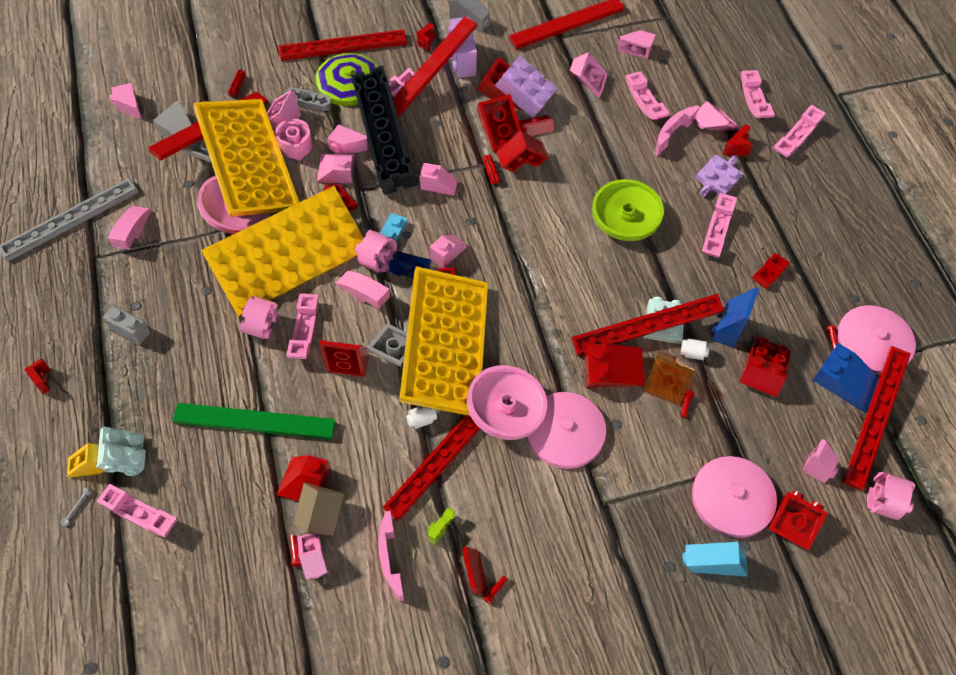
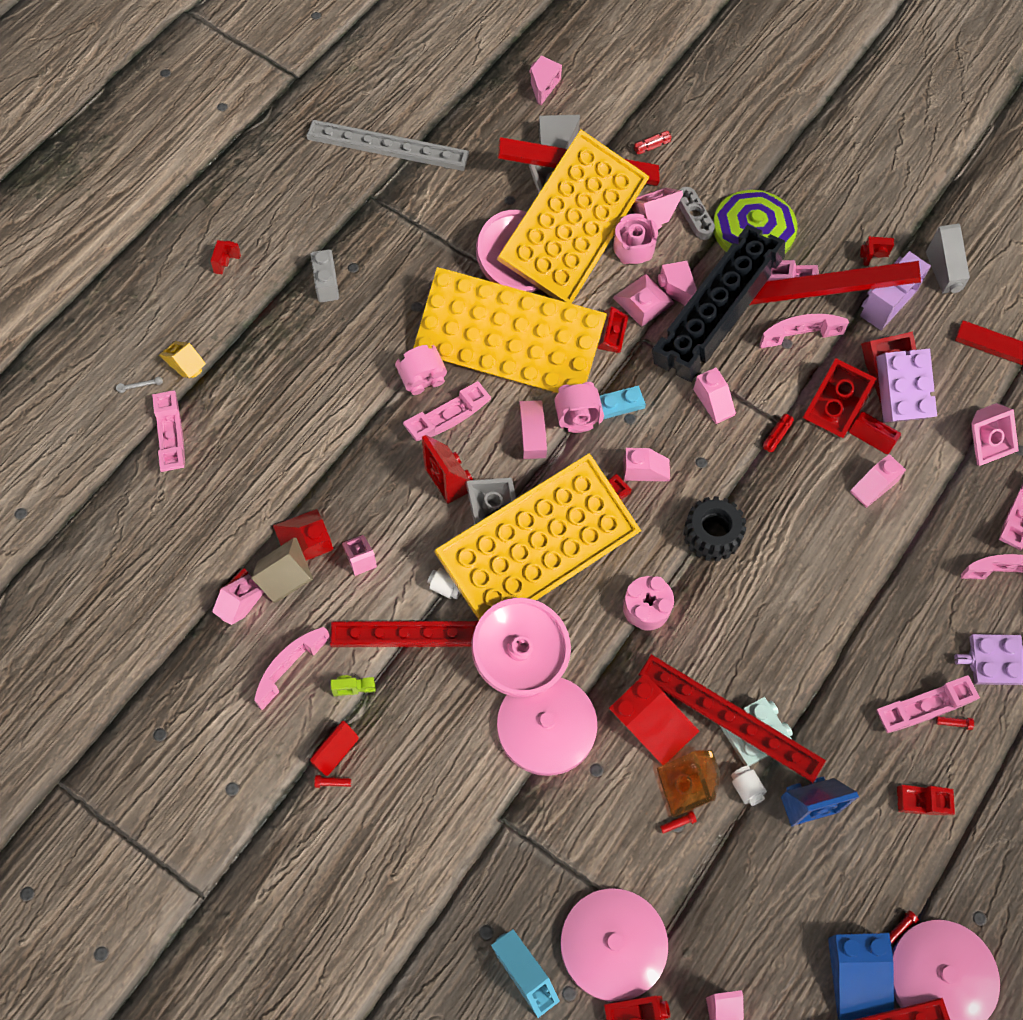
camera: 50 degrees right, 5 degrees up
(121, 451) = (207, 373): light aqua plate -> none
(128, 227) = (419, 194): bright pink slope -> none
(254, 421) = (326, 452): green tile -> none
(342, 45) = (791, 189): red tile -> none
(351, 453) = (359, 555): none -> bright pink slope
(405, 264) = (594, 441): clear blue bracket -> none
(447, 94) = (827, 324): none -> bright pink slope
(521, 149) = (824, 442): red brick -> none
(523, 232) = (718, 512): none -> black tyre
(538, 313) = (654, 591): none -> bright pink brick
(567, 145) = (878, 480): none -> bright pink slope
(627, 210) = (853, 597): lime dish -> none
(743, 217) = (967, 723): none -> red piece
(766, 366) = (796, 874): red slope -> none

